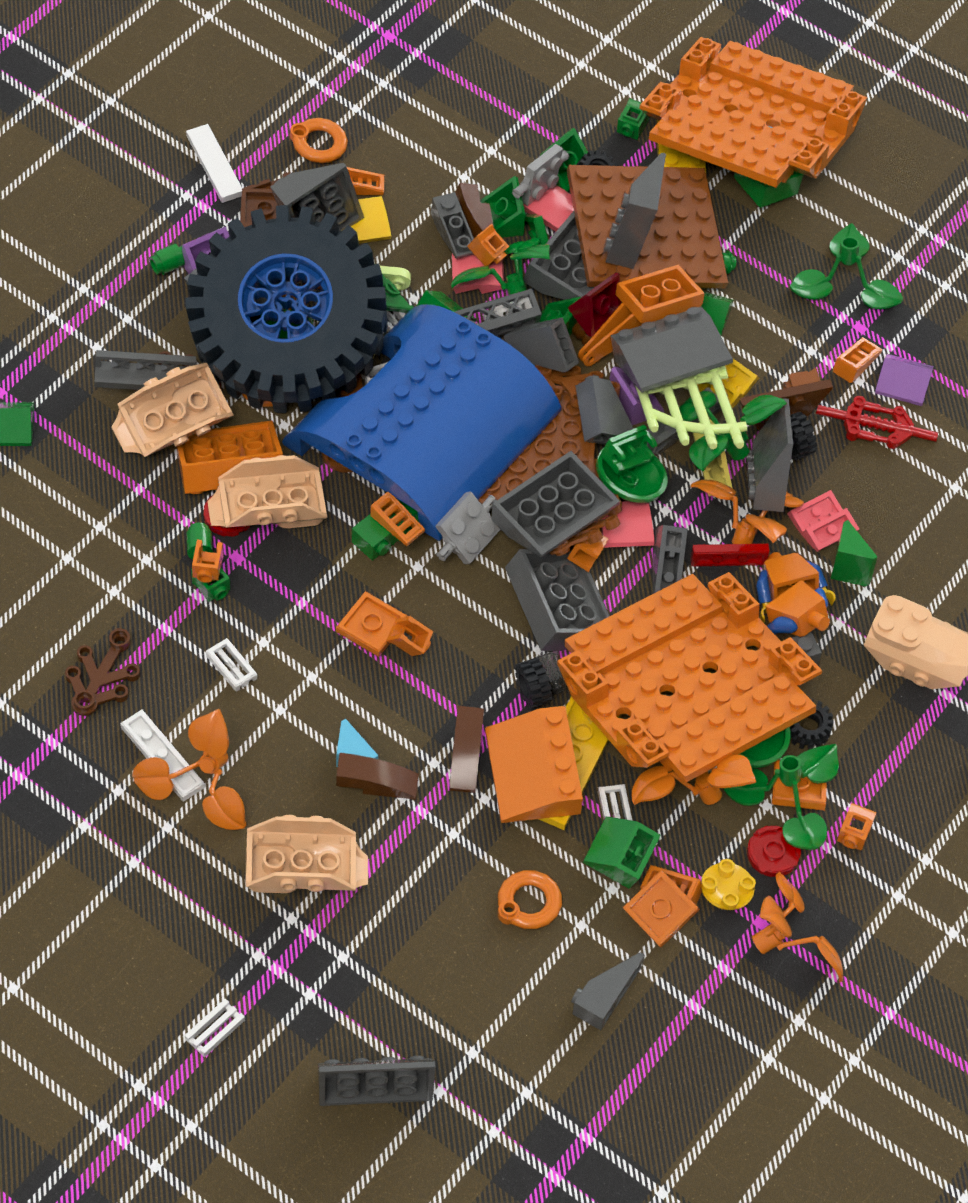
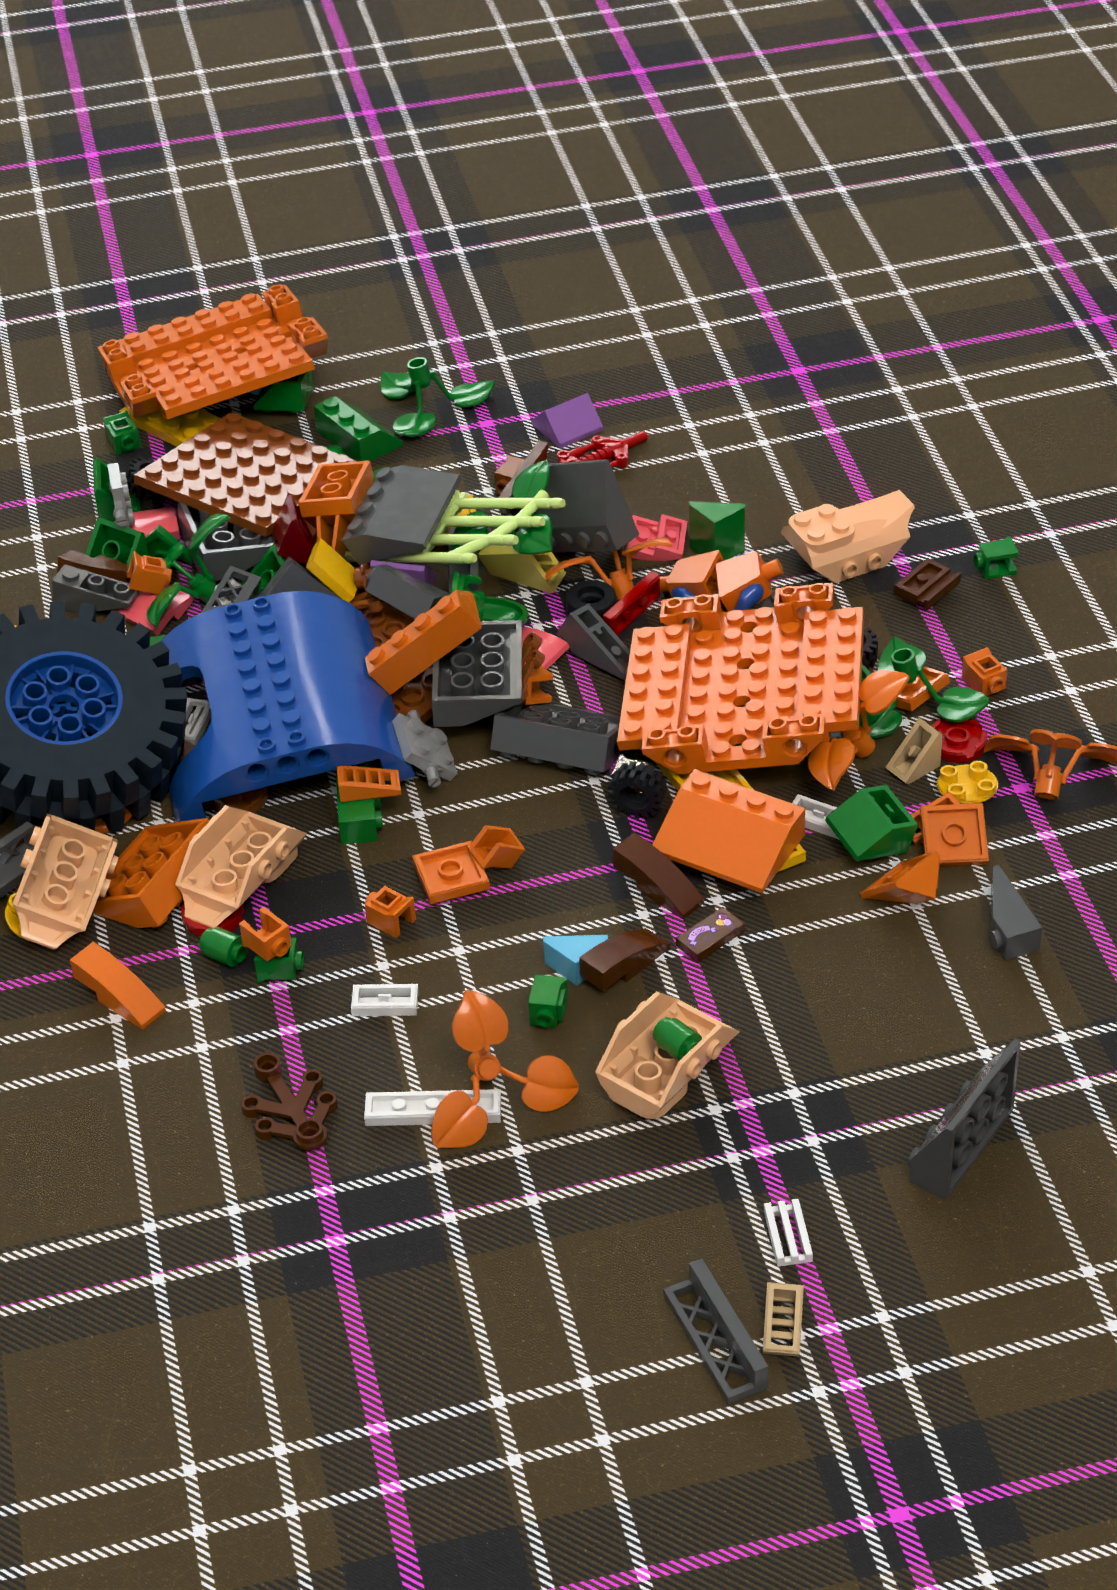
camera: 45 degrees left, 15 degrees down
(103, 1042) = (726, 1324): none -> dark grey fence
(117, 509) = (116, 986): none -> orange slope
(143, 1077) = (789, 1294): none -> tan slope
(298, 759) = (548, 1001): none -> green window
(306, 610) = (386, 907): none -> orange window
(307, 856) = (675, 1037): none -> green brick
(443, 815) = (710, 934): none -> reddish brown tile
(522, 919) = (857, 942): orange piece -> none
(539, 459) = (424, 641): none -> orange slope
(585, 352) = (332, 570): none -> yellow tile
(587, 906) = (908, 882): none -> orange slope
(601, 370) = (360, 576): none -> dark orange plate
(635, 216) = (259, 439): dark grey slope -> none
(711, 517) = (596, 593): none -> black tyre
(724, 834) = (917, 753): none -> tan slope
(770, 254) = (353, 430): none -> green slope
(855, 361) = (517, 438): orange slope -> none
(928, 729) = (927, 583): none -> reddish brown plate

